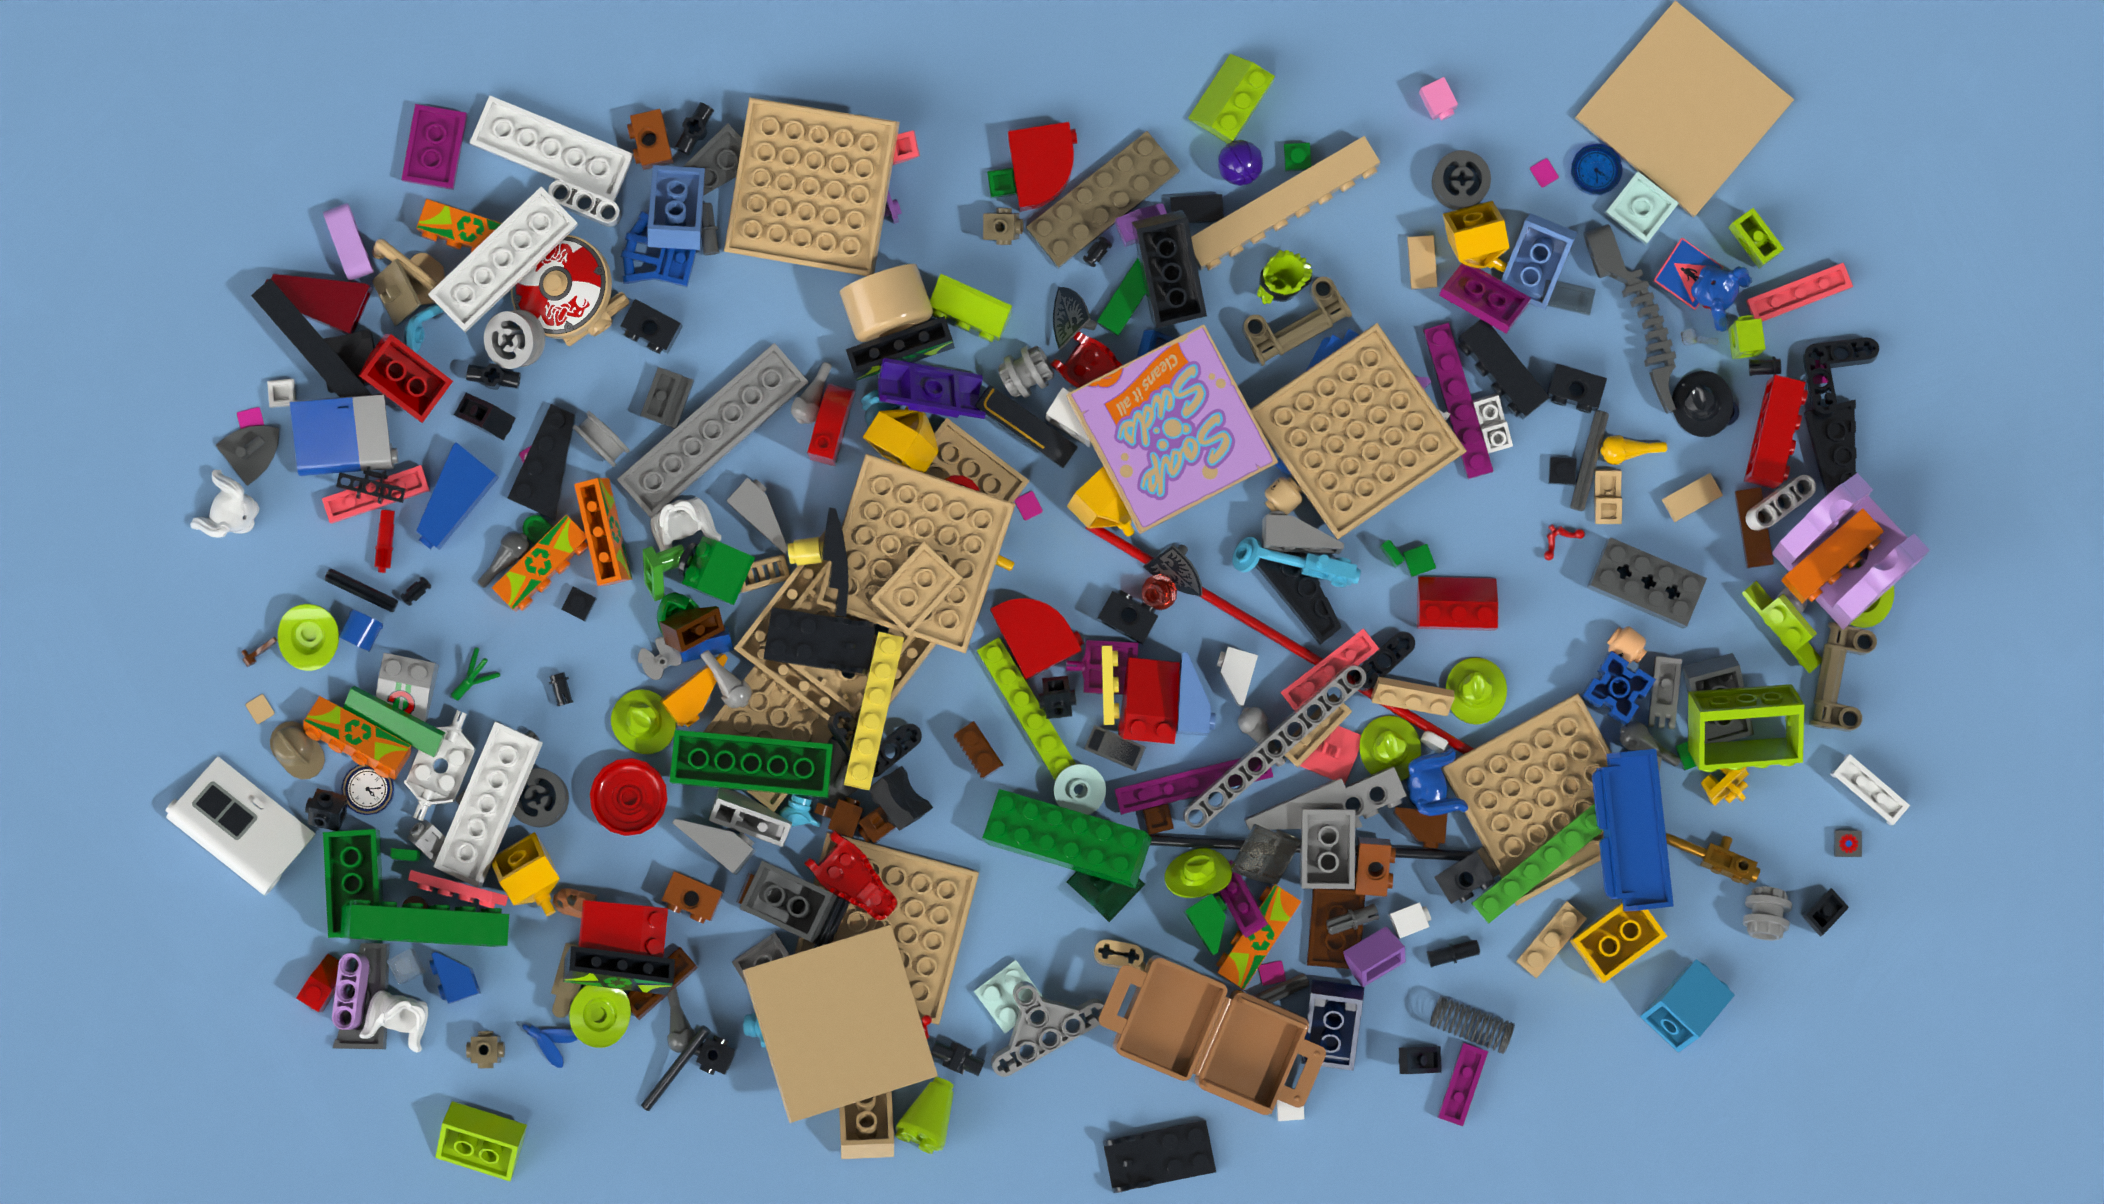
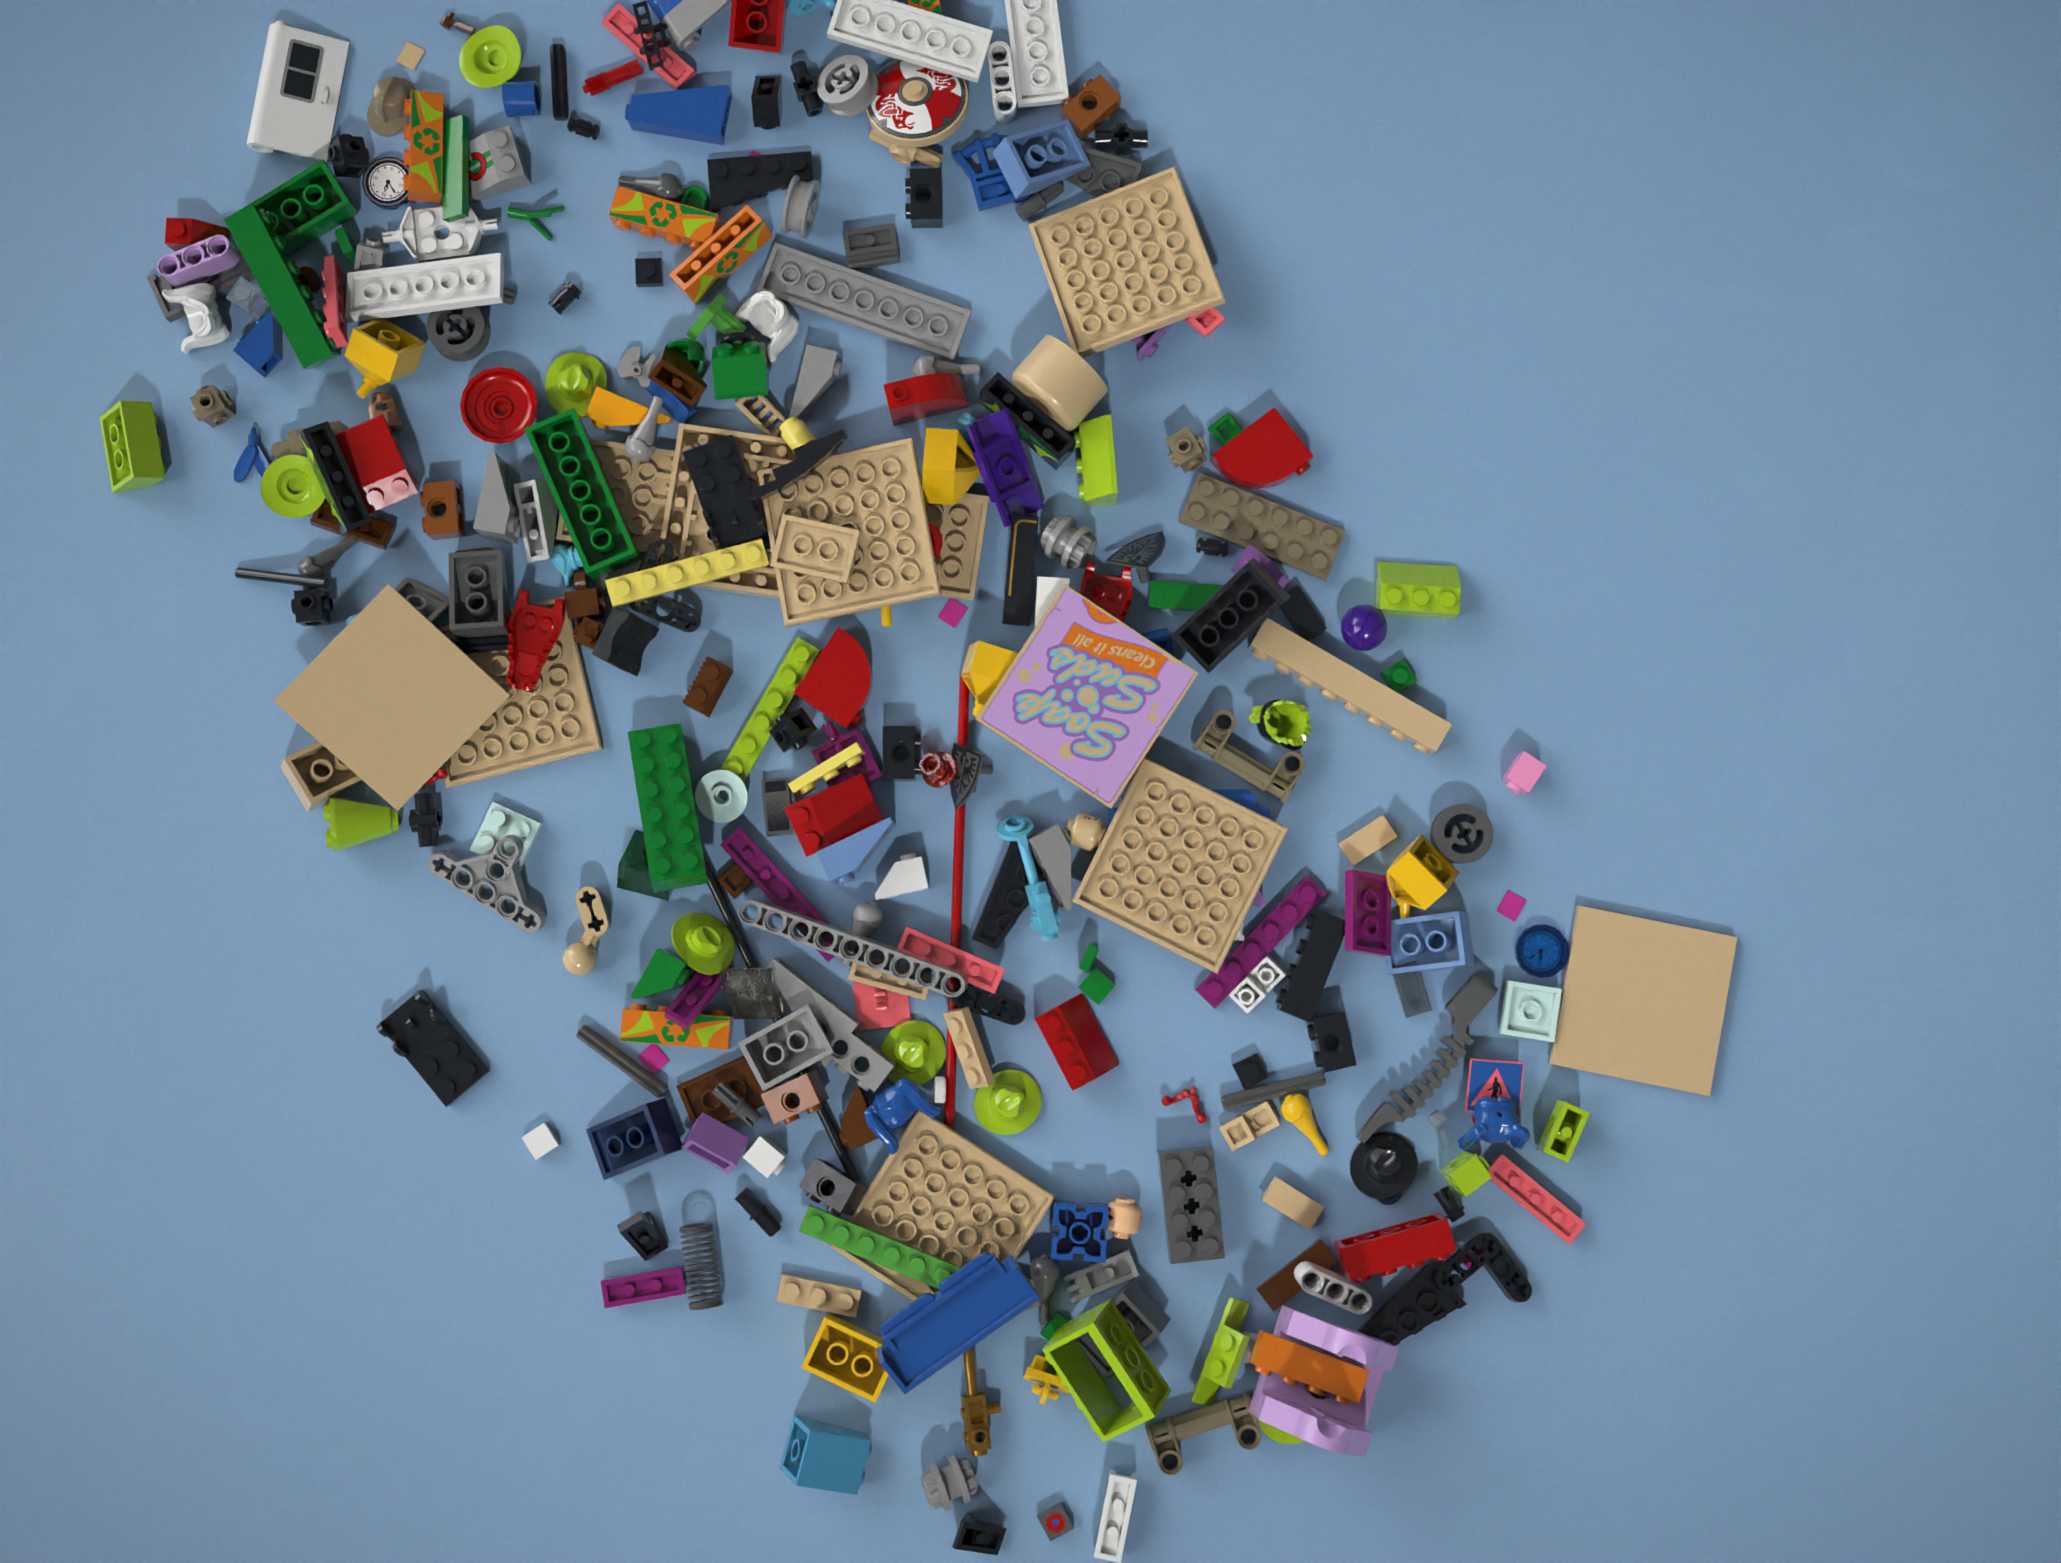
camera: 65 degrees right, 0 degrees up
(1231, 1044) = (561, 1060): medium nougat piece -> none

